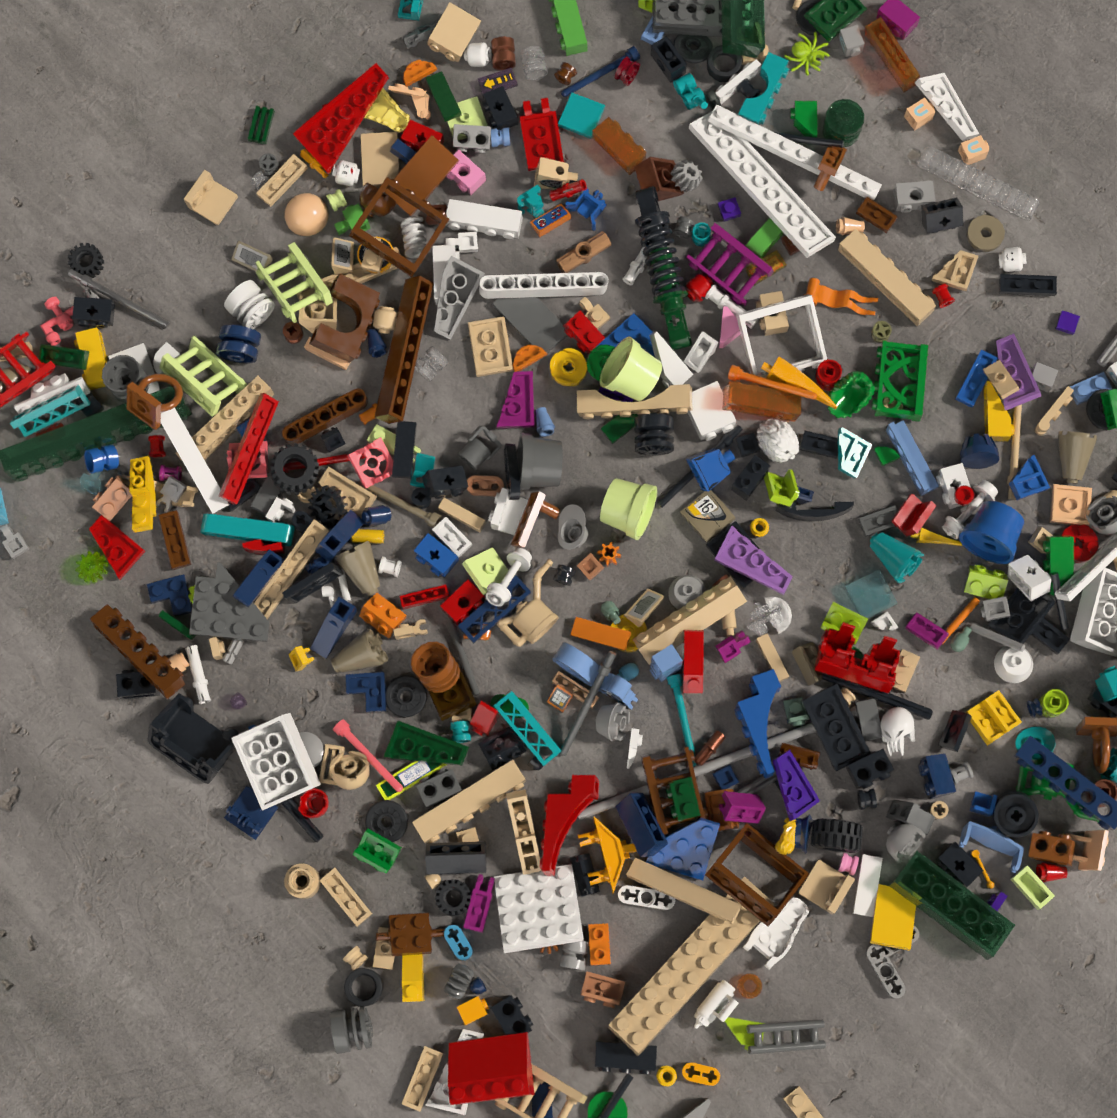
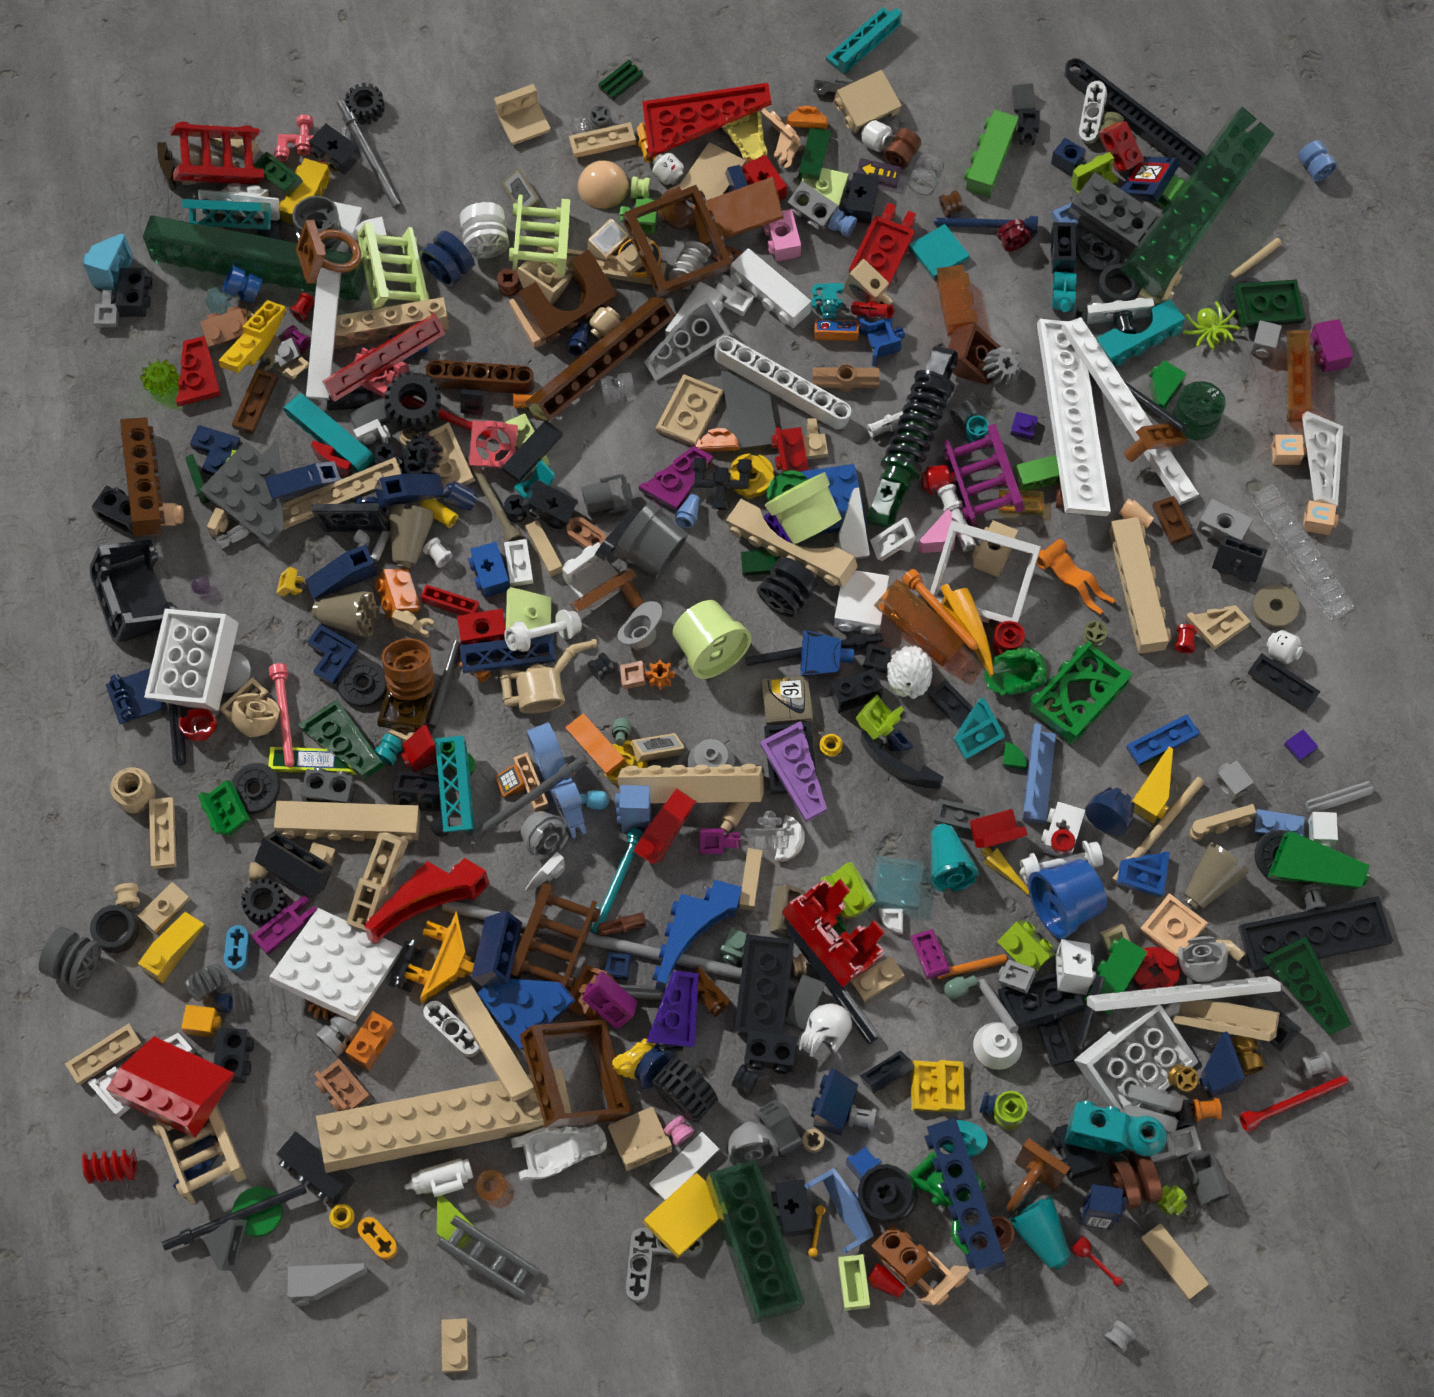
camera: 30 degrees right, 10 degrees down
(20, 517) = (129, 292): none -> black brick
(200, 682) = (179, 544): white pin -> none
(410, 934) = (195, 907): reddish brown plate -> none
(552, 385) = (721, 479): none -> black piece
(683, 799) = (555, 951): dark green bracket -> none
(996, 900) = (806, 1270): dark purple plate -> none
(1001, 379) = (1184, 752): tan plate -> none
(1014, 361) = (1205, 758): medium lavender wing -> none

